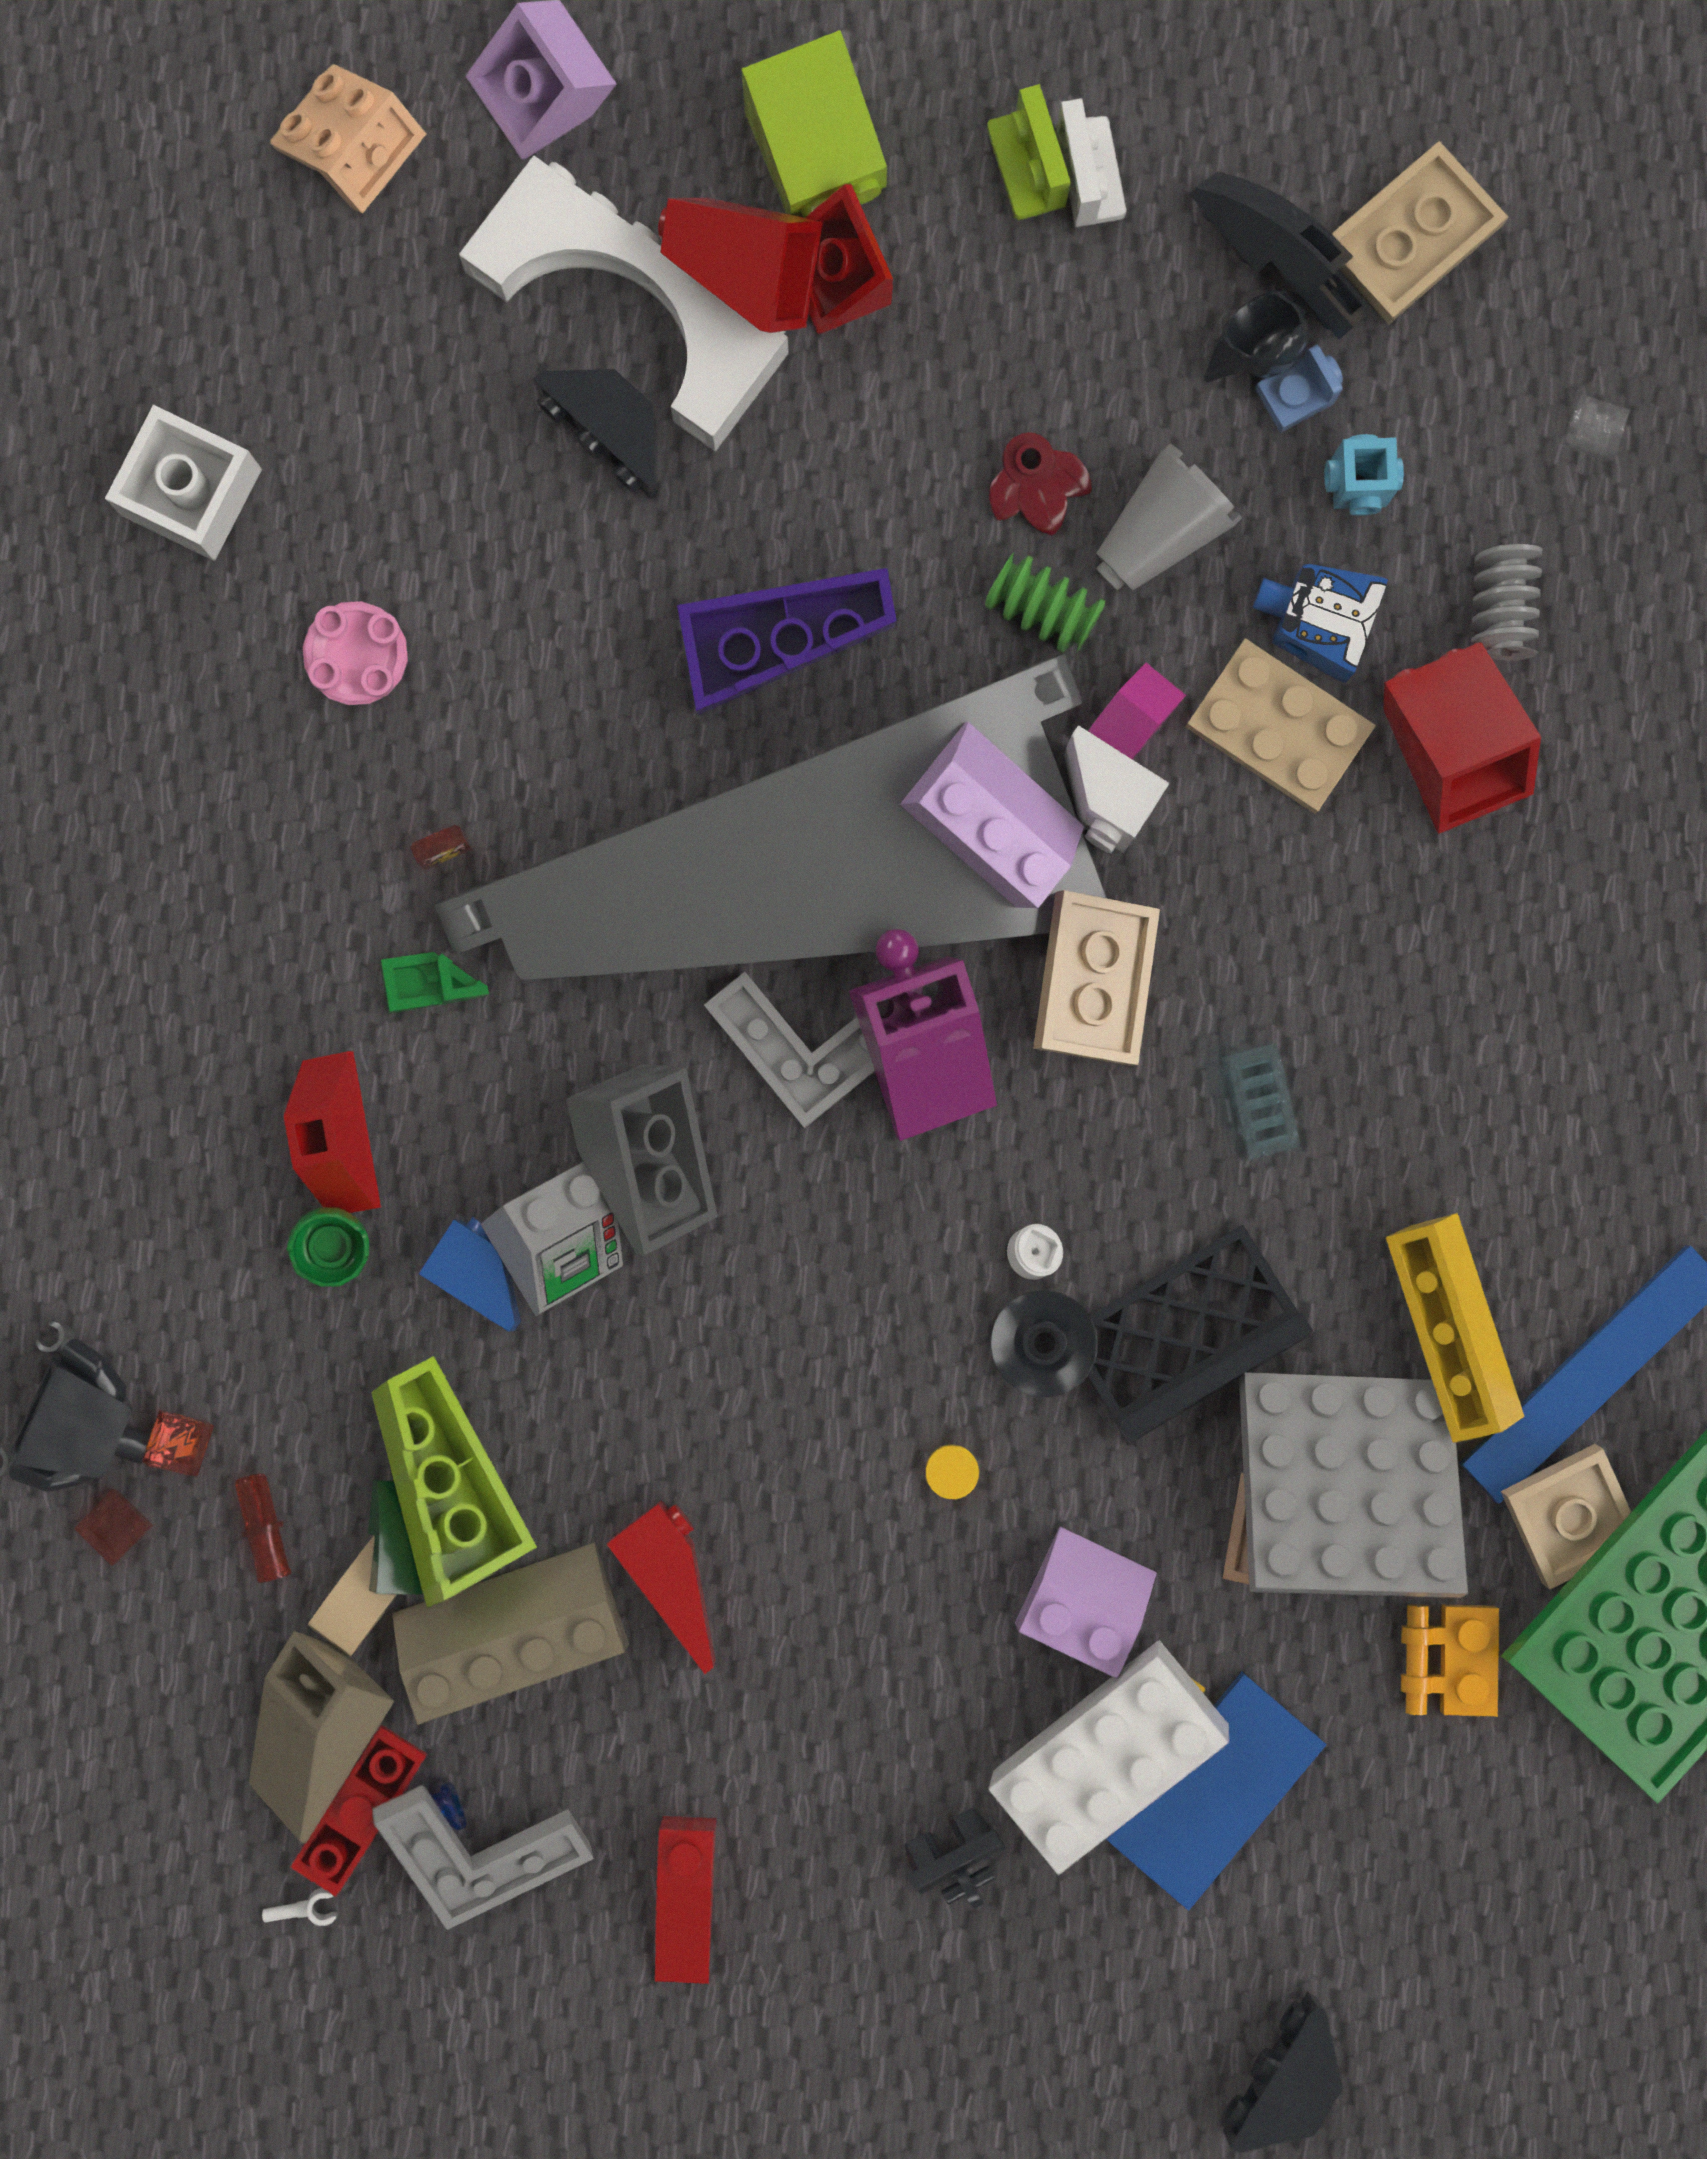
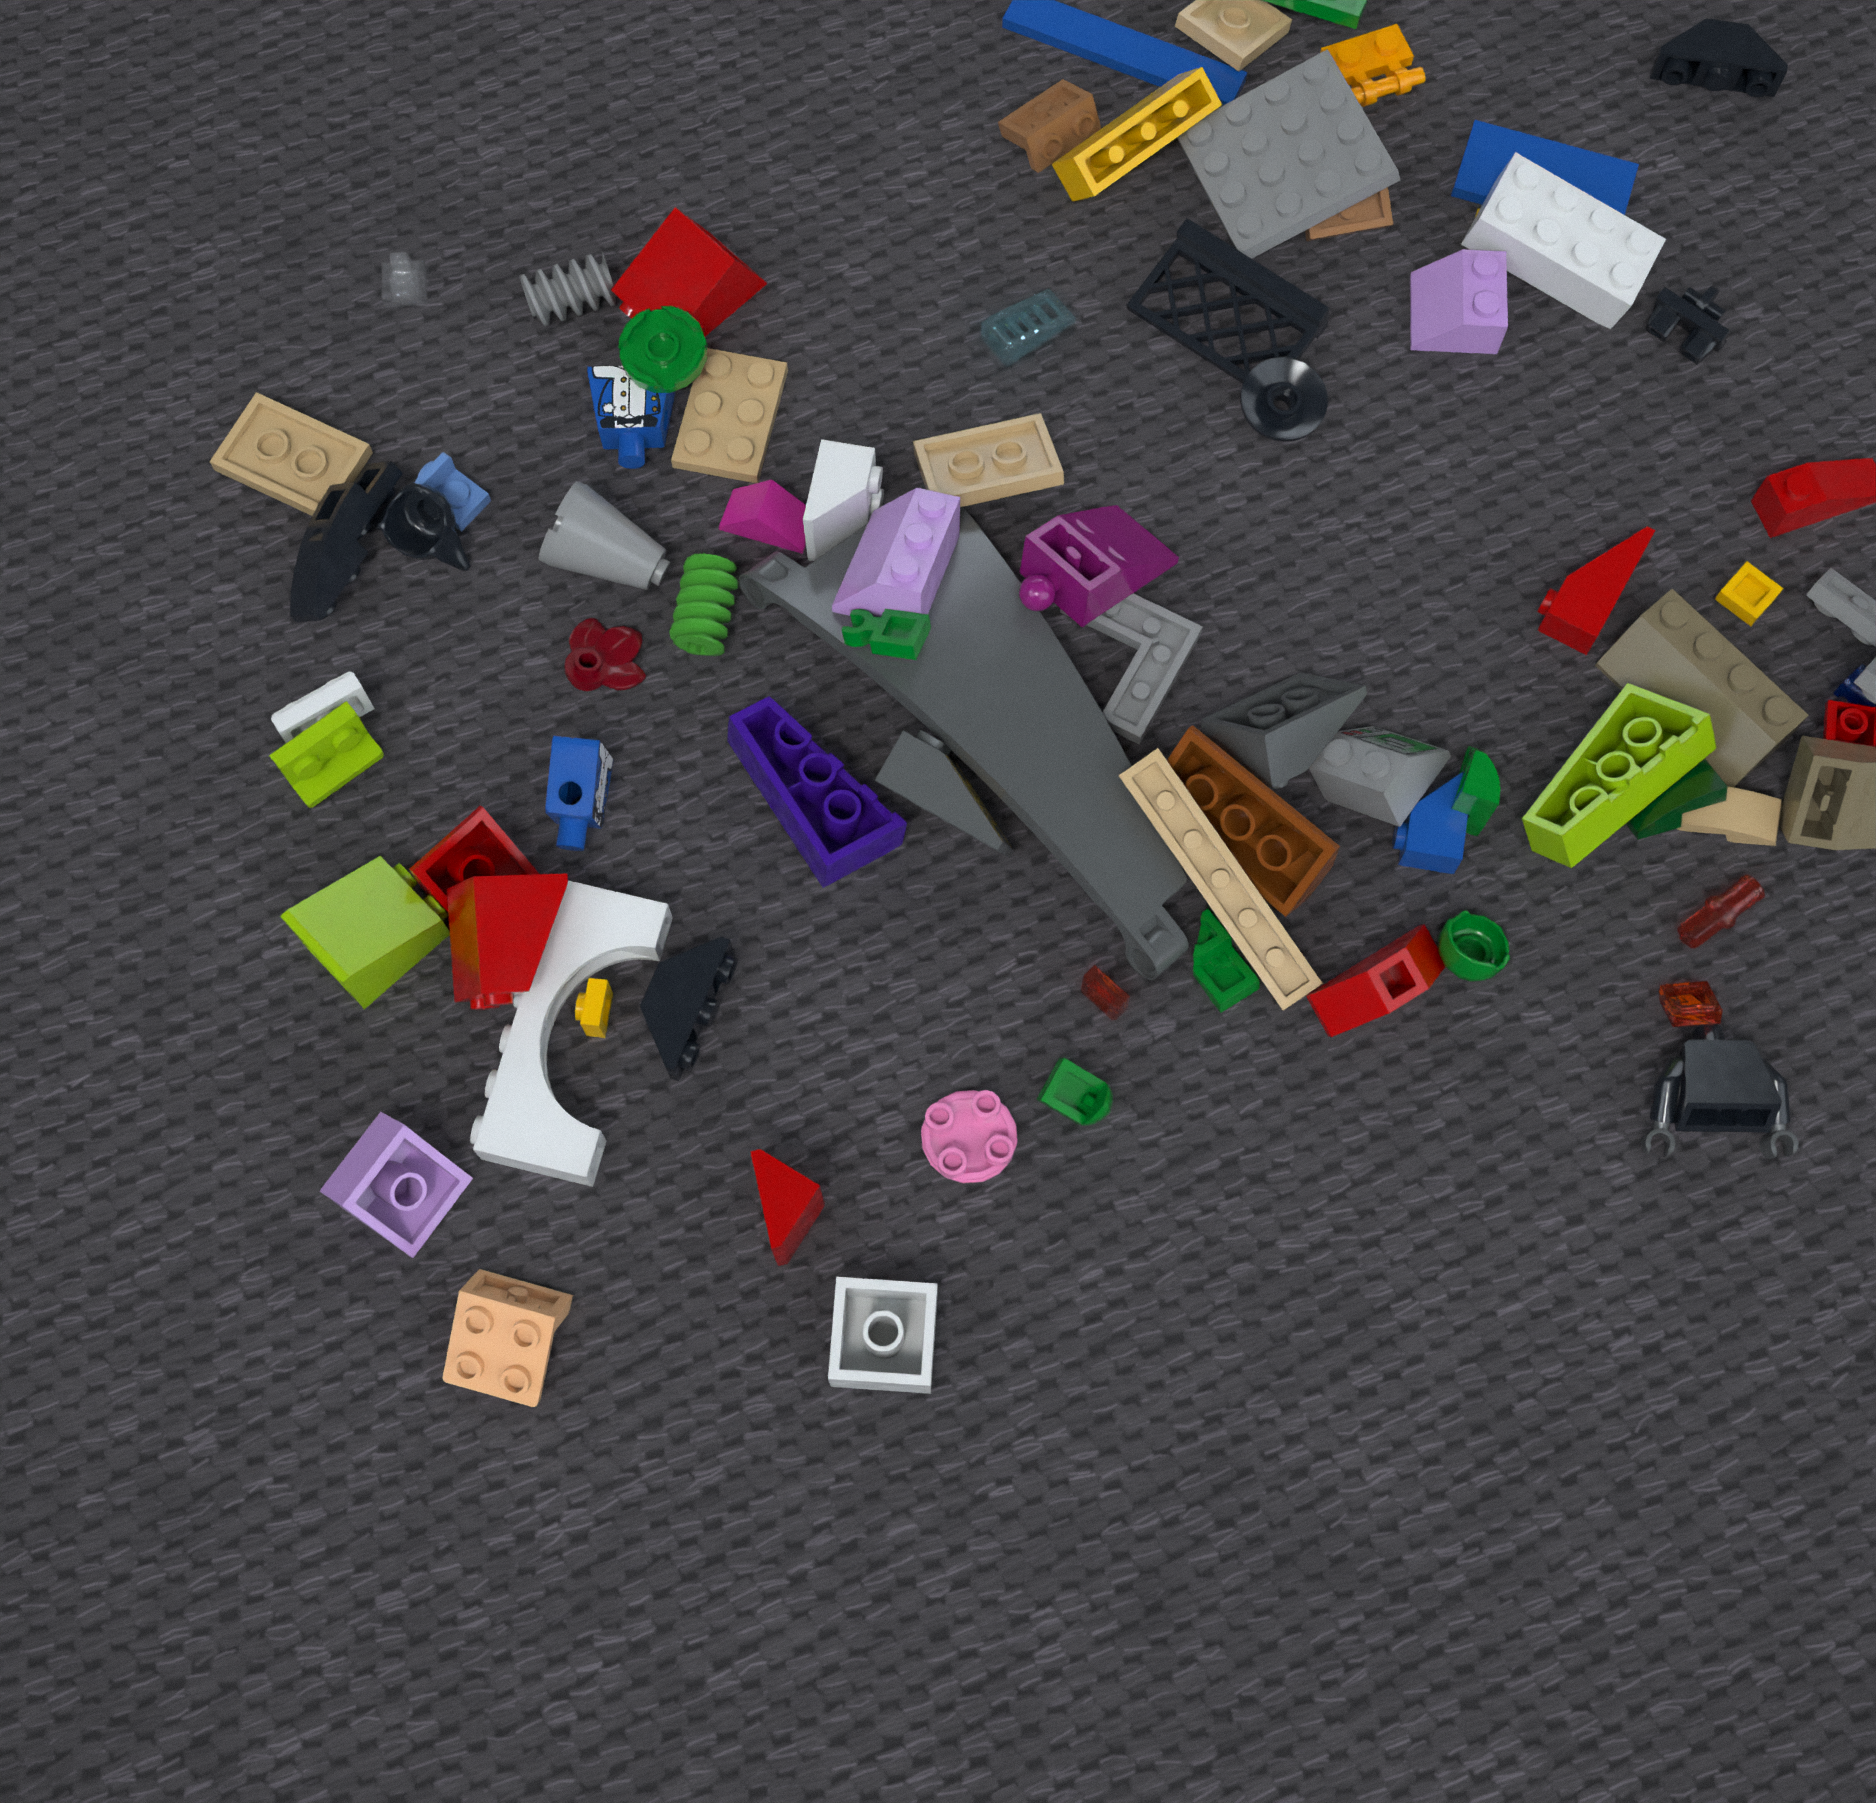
camera: 105 degrees left, 15 degrees down
(113, 1527) = (1782, 1032): clear red tile -> none
(349, 775) = (1076, 1094): none -> green plate
(353, 432) = (788, 1204): none -> red slope
(484, 1322) = (1478, 790): none -> green slope
(503, 1008) = (1220, 879): none -> tan plate
(551, 1058) = (1265, 834): none -> dark orange slope
(600, 1750) = (1749, 593): none -> yellow plate
(640, 331) = (594, 1007): none -> yellow plate
(704, 758) = (930, 779): none -> dark grey slope
(884, 394) = (577, 770): none -> blue torso
(898, 765) = (892, 634): none -> green plate
(952, 1471) = (1409, 433): yellow tile -> none
(1035, 1251) = (1216, 434): white tile -> none
(1371, 665) = (663, 349): none -> green tile
(1372, 459) = (507, 416): medium azure brick -> none
(1519, 1240) = (1052, 123): none -> medium nougat bracket

